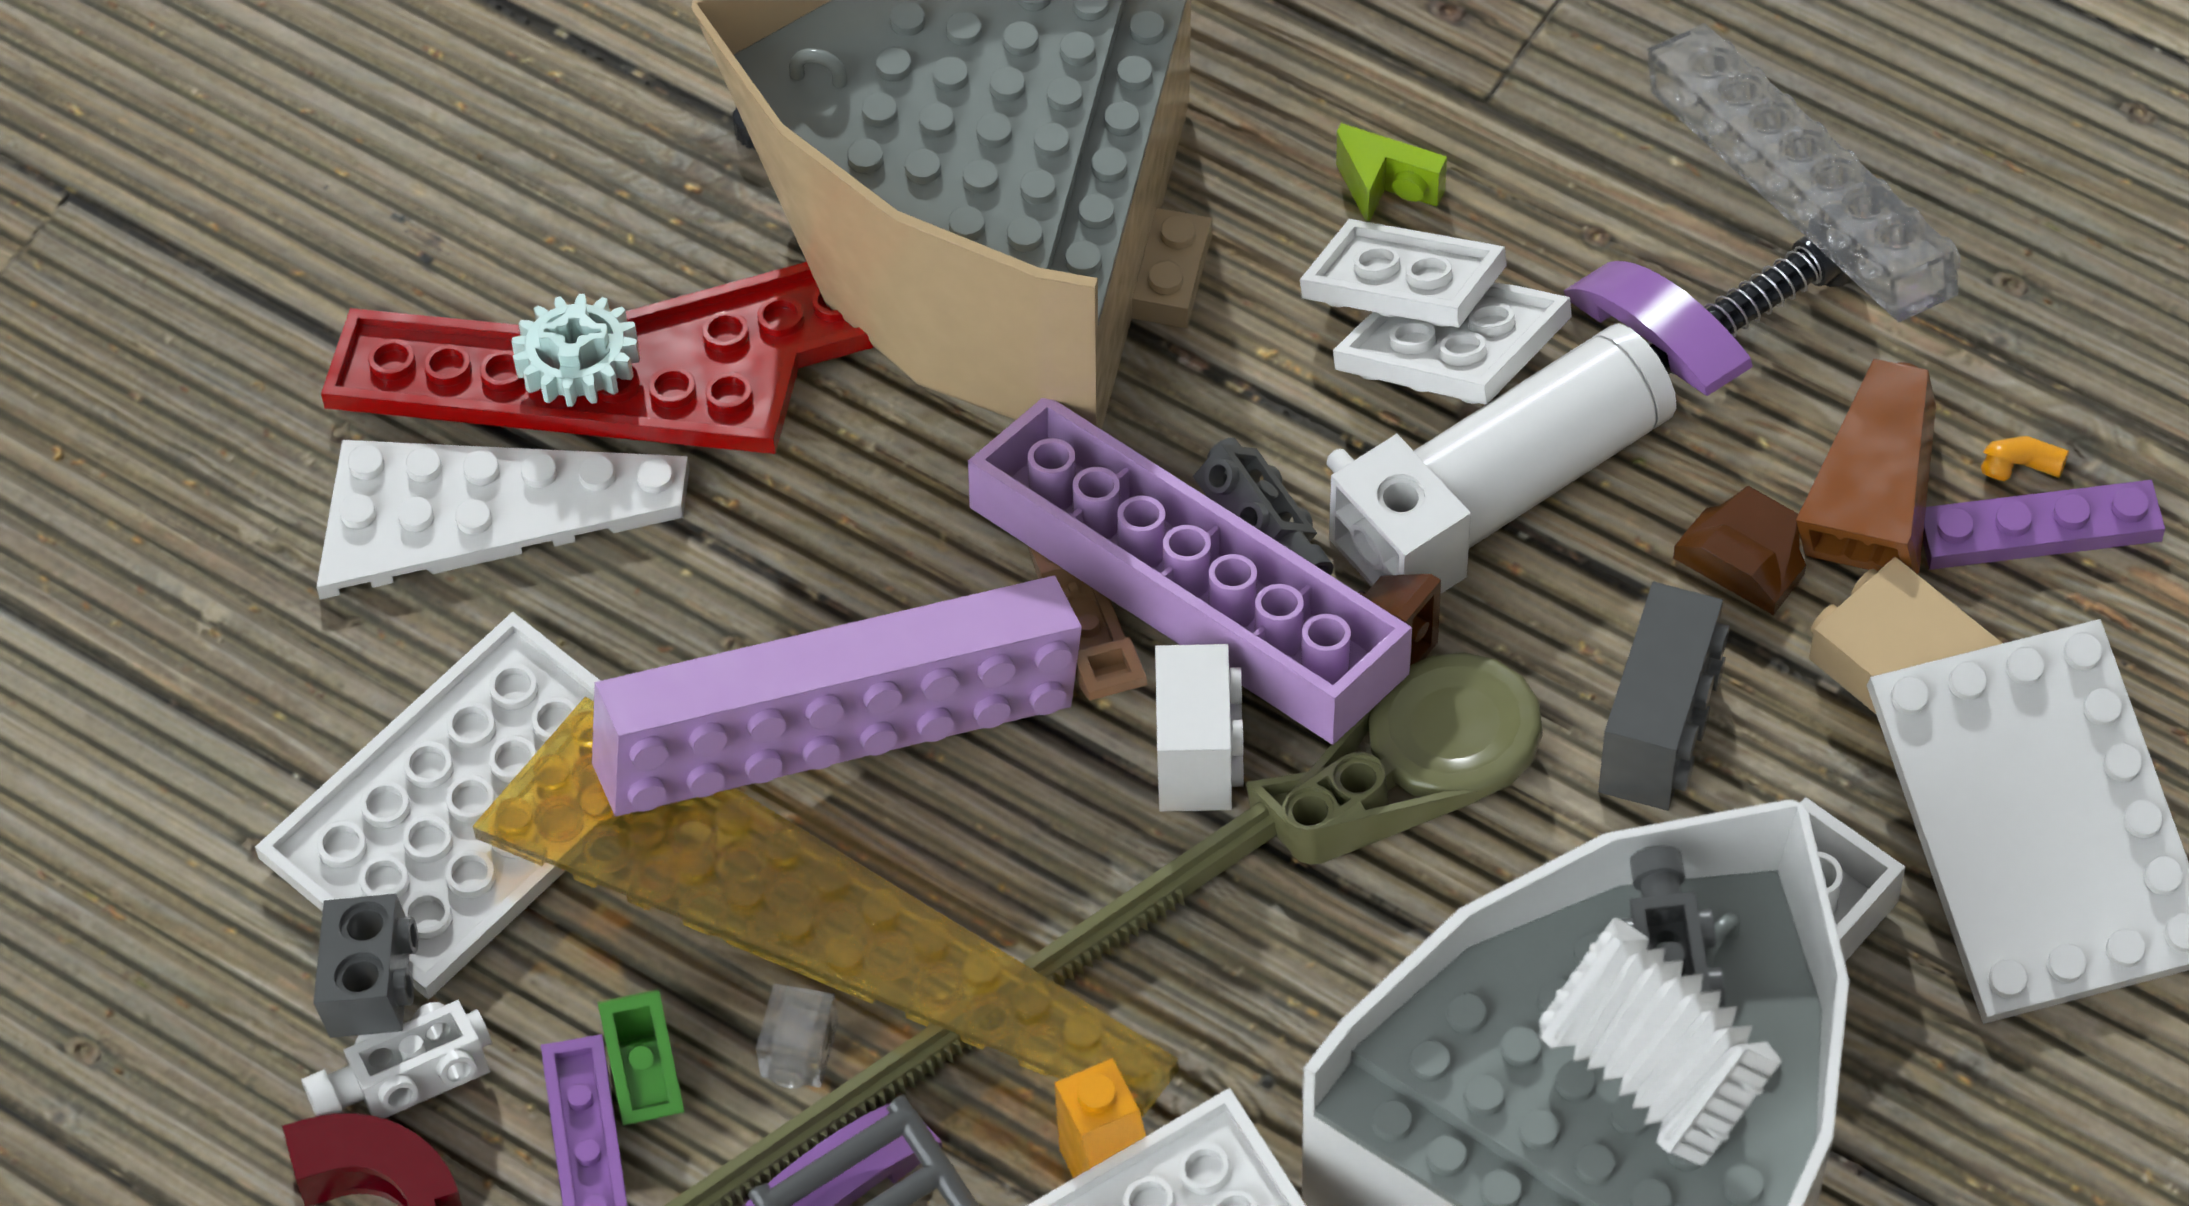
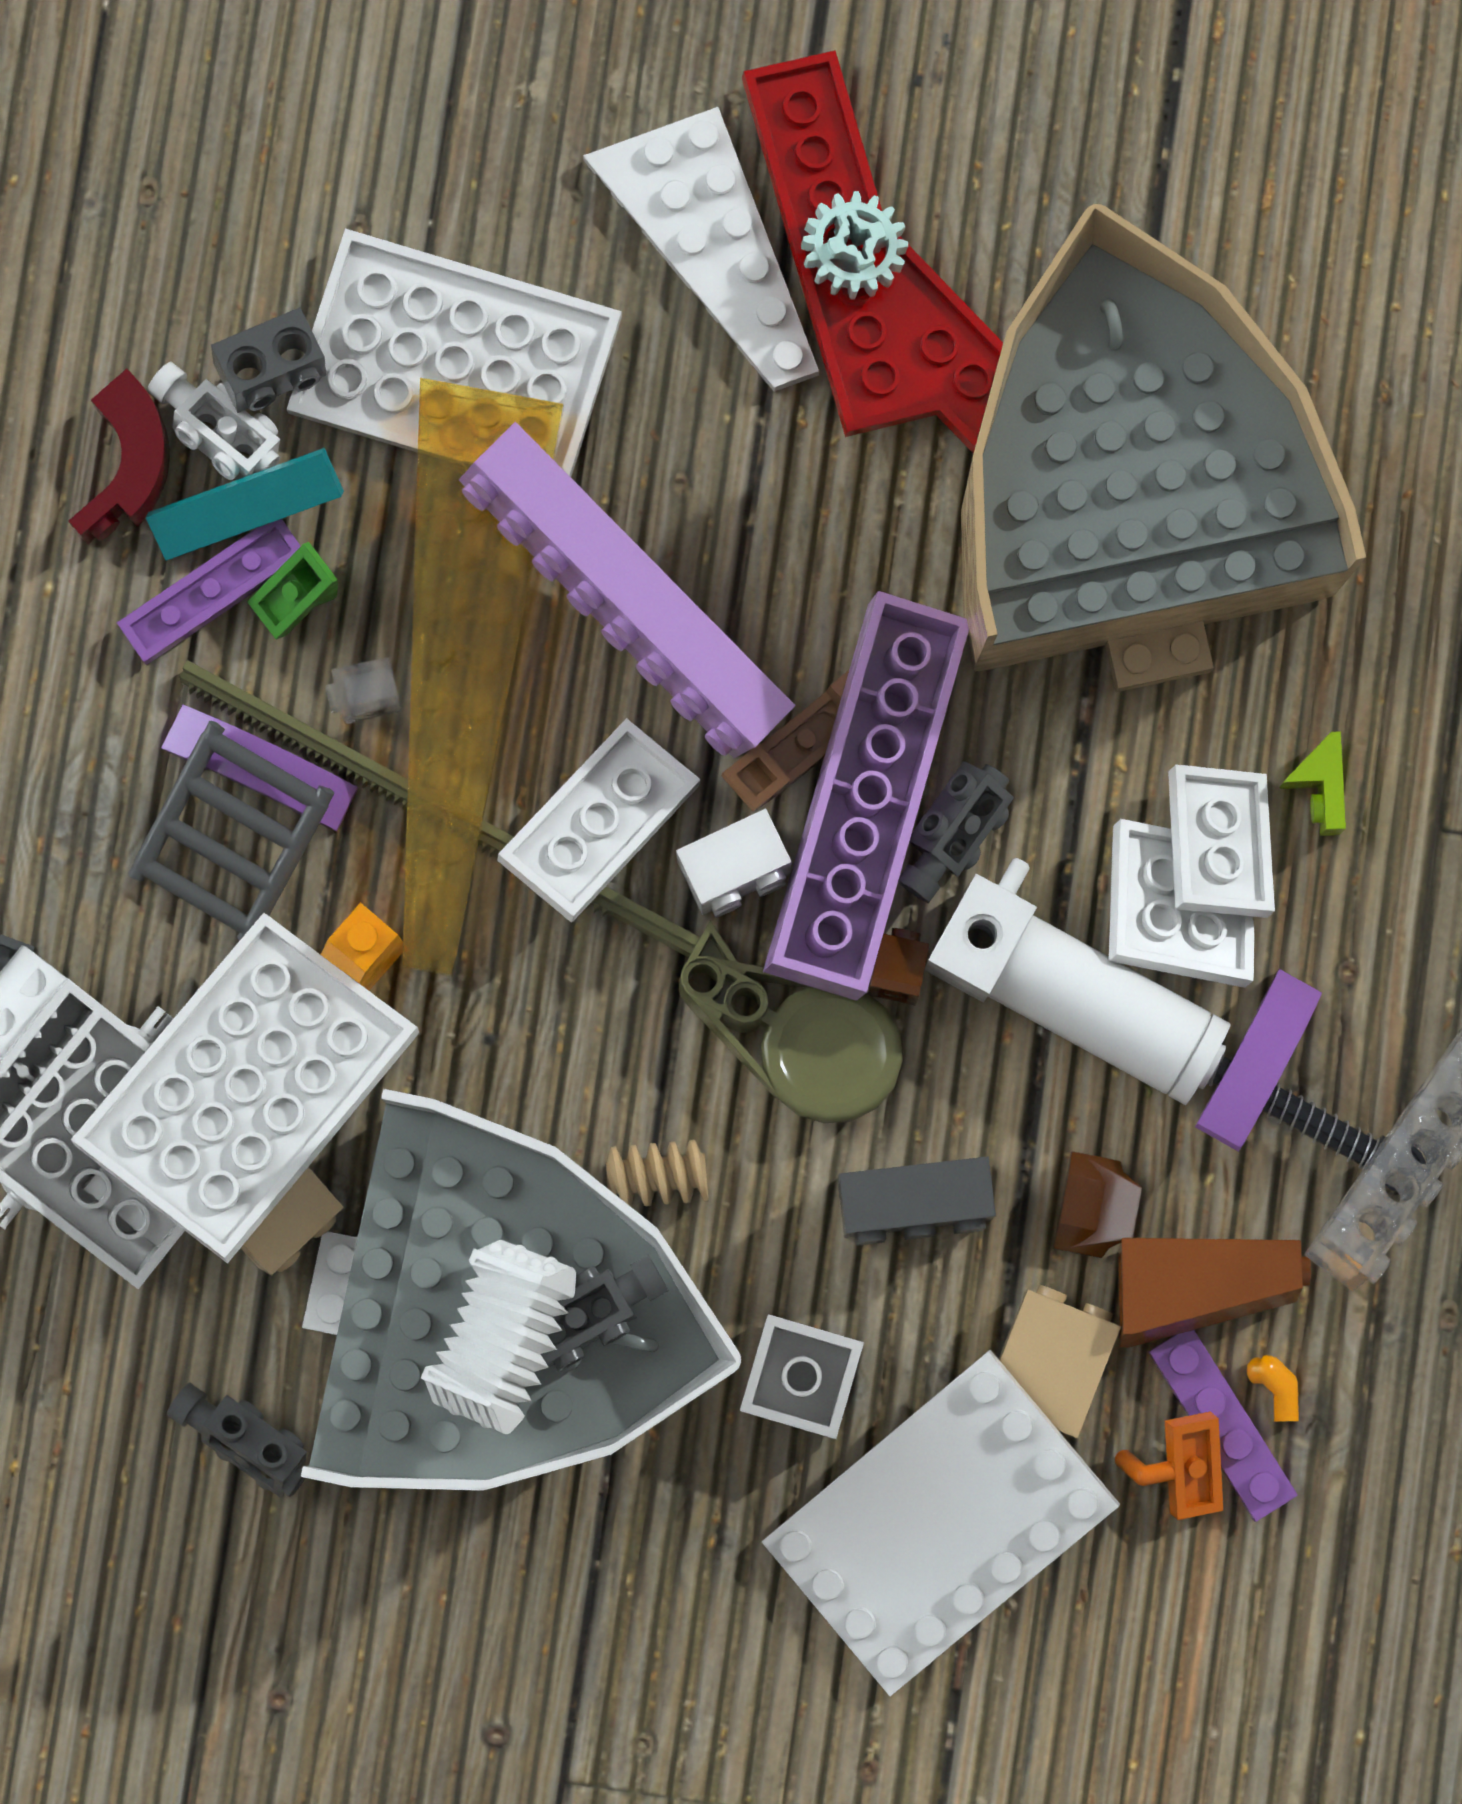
camera: 65 degrees right, 25 degrees up
(512, 1067) = (245, 504): none -> teal tile
(1076, 848) = (598, 820): none -> white plate
(2083, 561) = (1190, 1467): none -> orange plate

